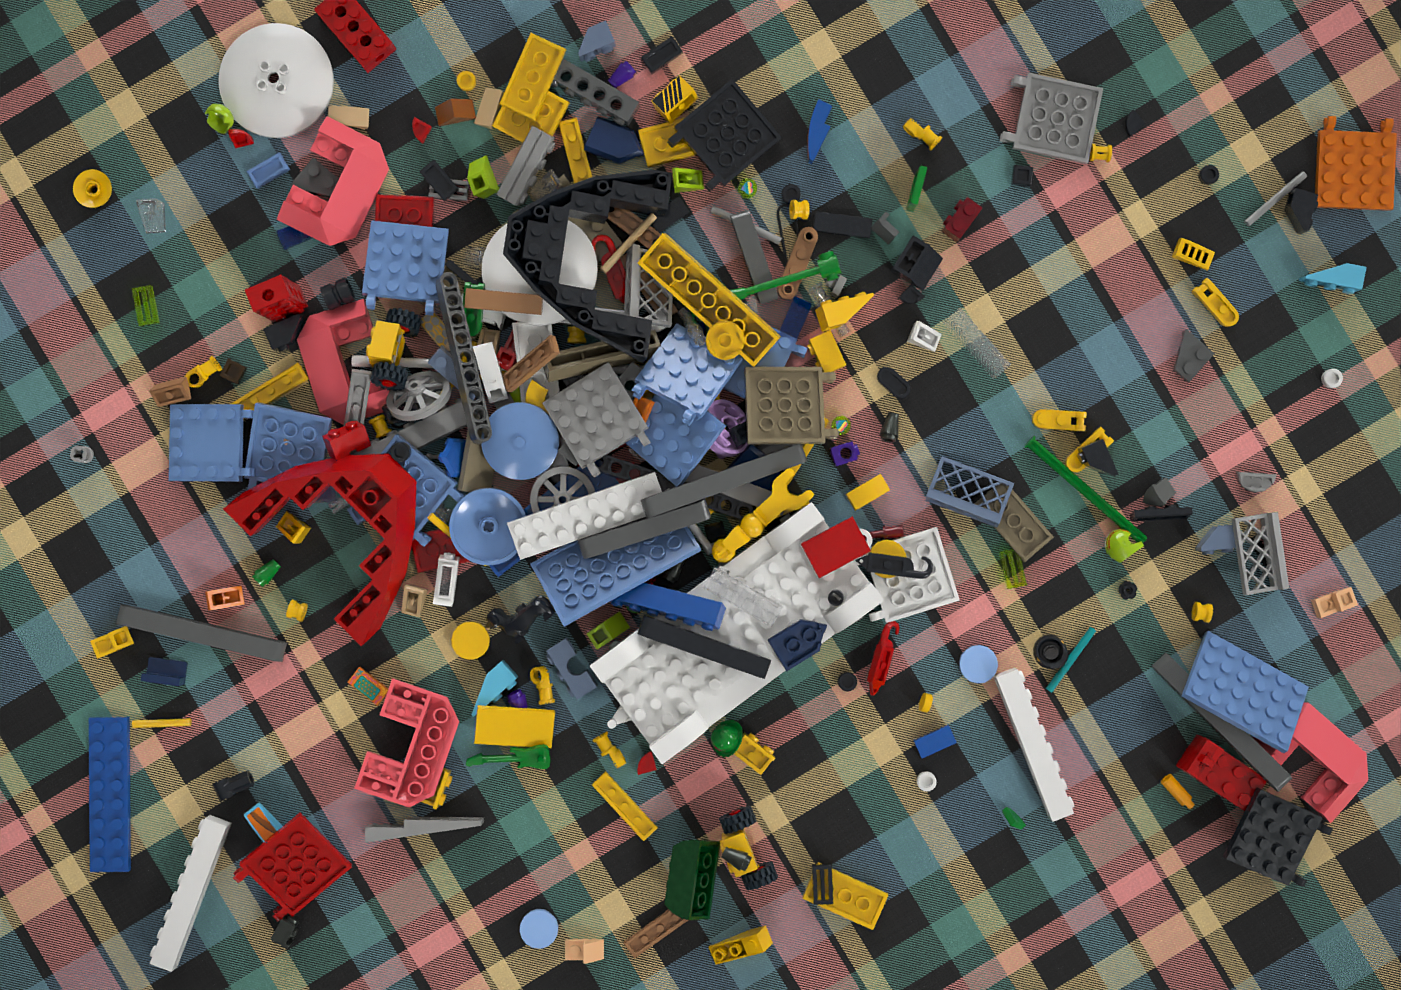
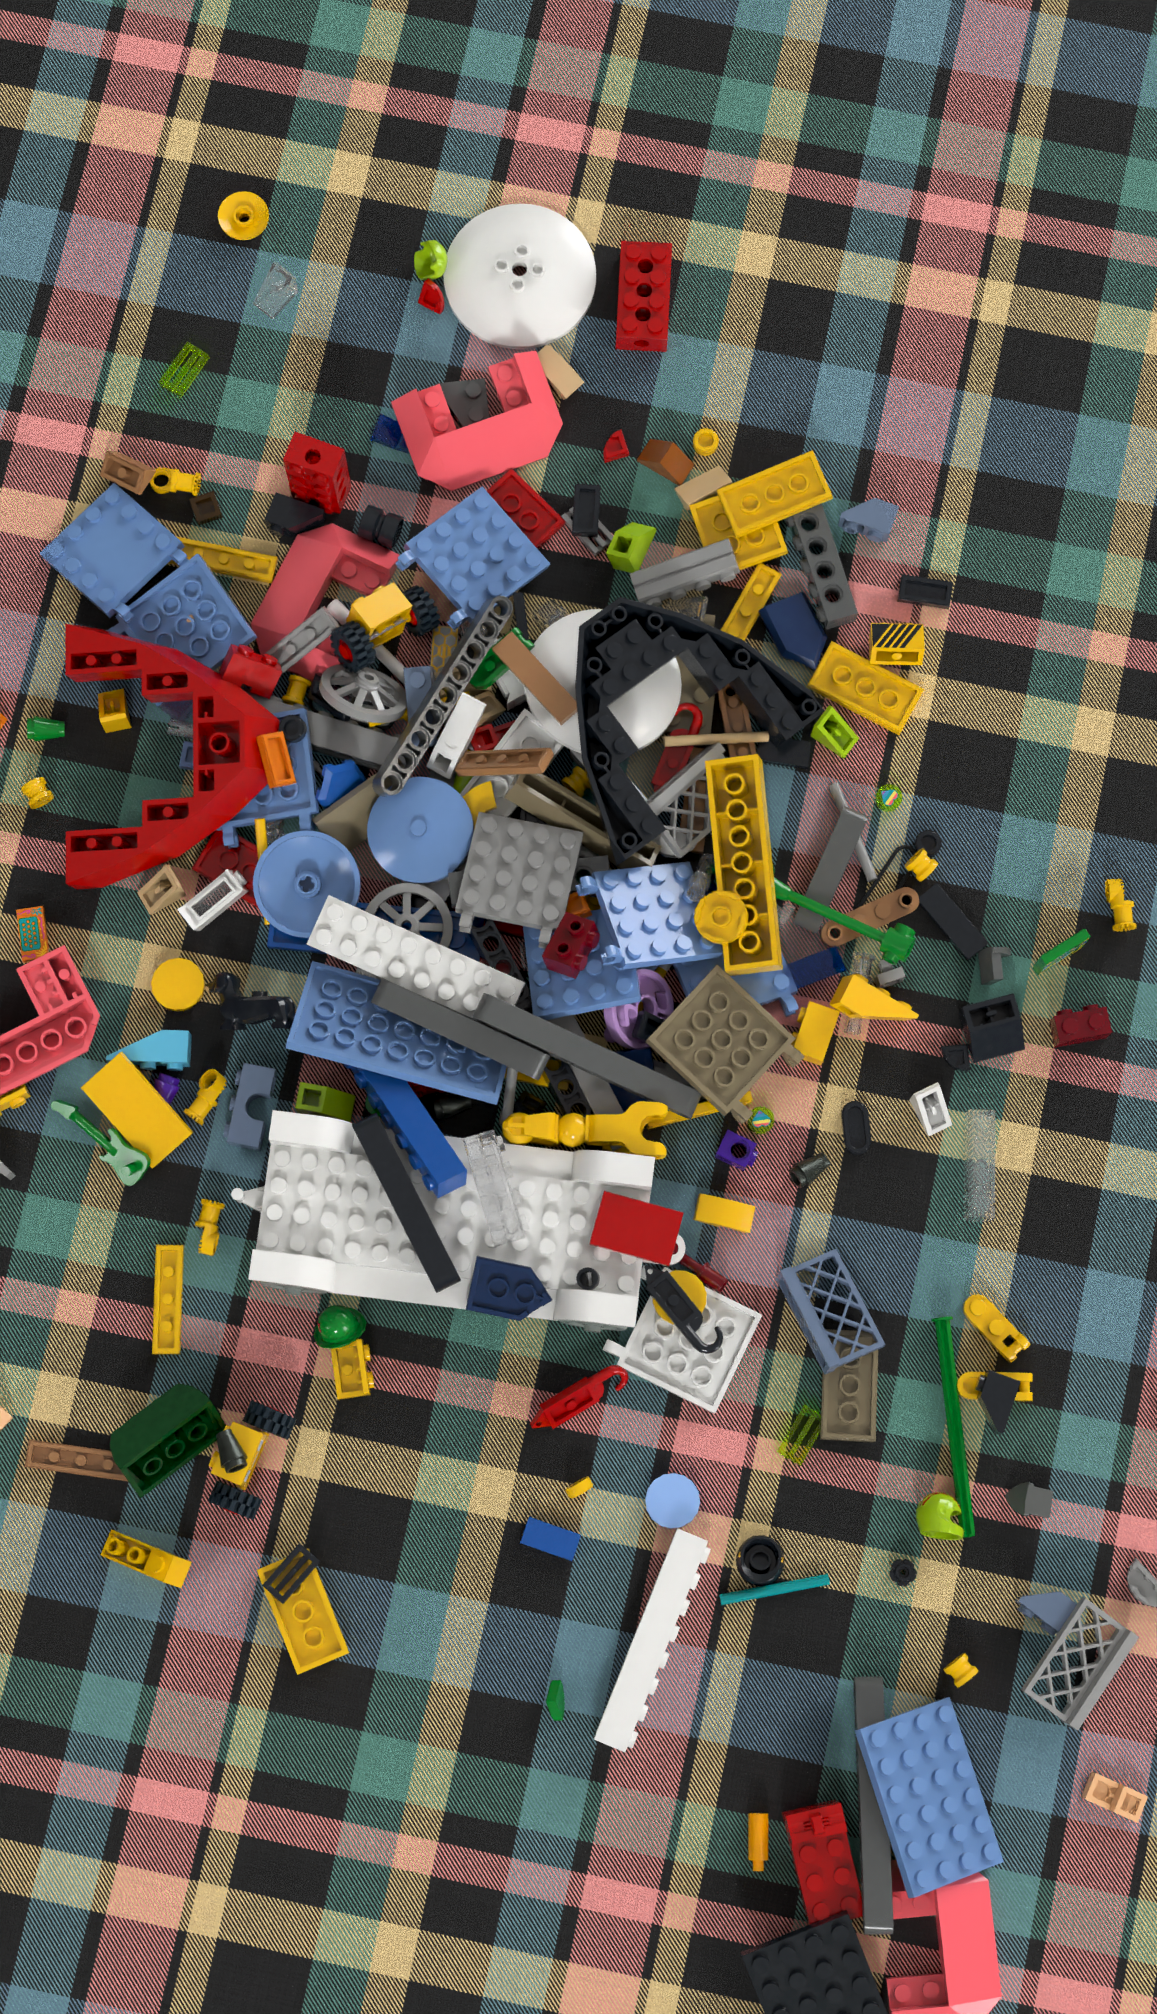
camera: 45 degrees right, 10 degrees down
(268, 170) = (428, 351): medium blue tile -> none
(408, 477) = (276, 759): none -> orange tile
(622, 74) = (867, 573): dark purple cone -> none
(646, 763) = (232, 1277): red tile -> none
(661, 430) = (571, 945): none -> dark red brick
(726, 134) = (916, 724): black plate -> none
(817, 129) = (1015, 804): blue slope -> none
(847, 681) = (518, 1389): black tile -> none
(926, 781) = (502, 1572): white tile -> none
(1168, 513) = (1019, 1529): black plate -> none

